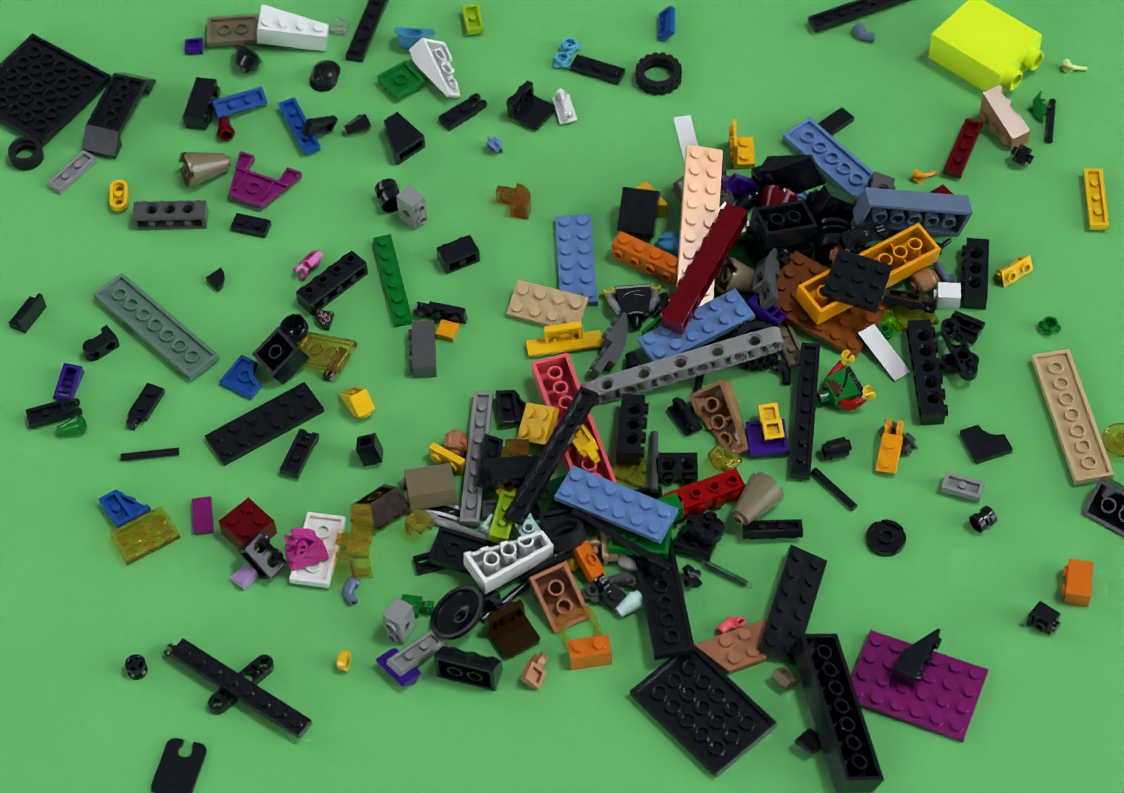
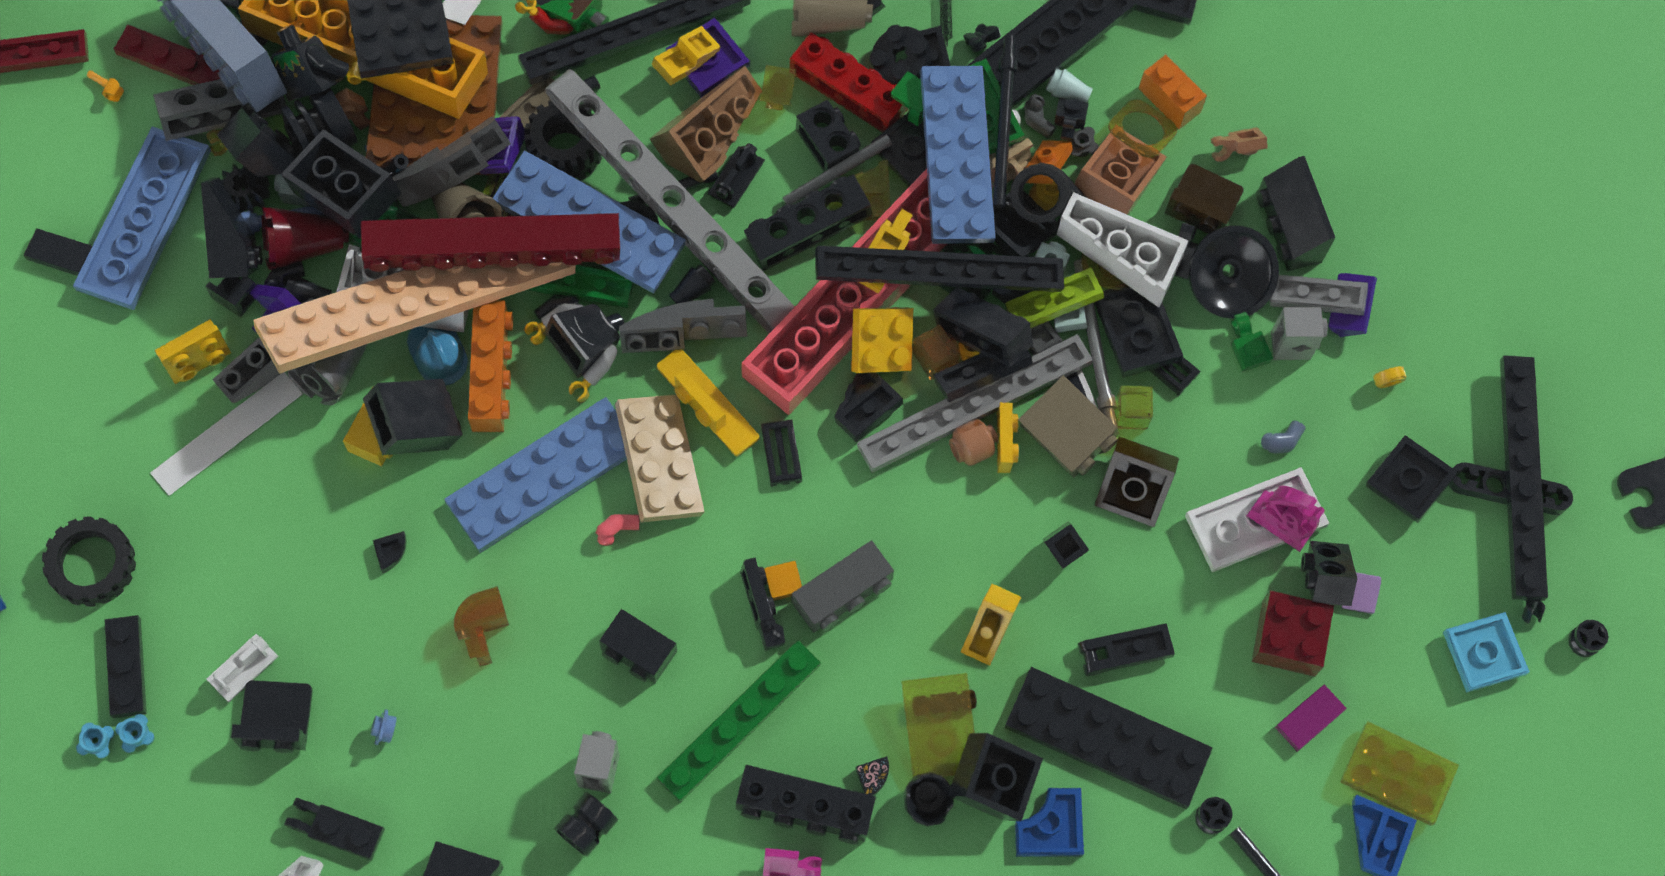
camera: 130 degrees left, 15 degrees up
(169, 613) = (1485, 652): none -> medium azure plate
(194, 439) = (1218, 810): none -> black wheel
(281, 633) = (1411, 479): none -> black plate
(358, 540) = (1213, 455): clear yellow piece -> none
(513, 364) = (785, 478): none -> black tile
(527, 272) = (614, 524): none -> coral arm
(581, 185) = (390, 550): none -> black tile

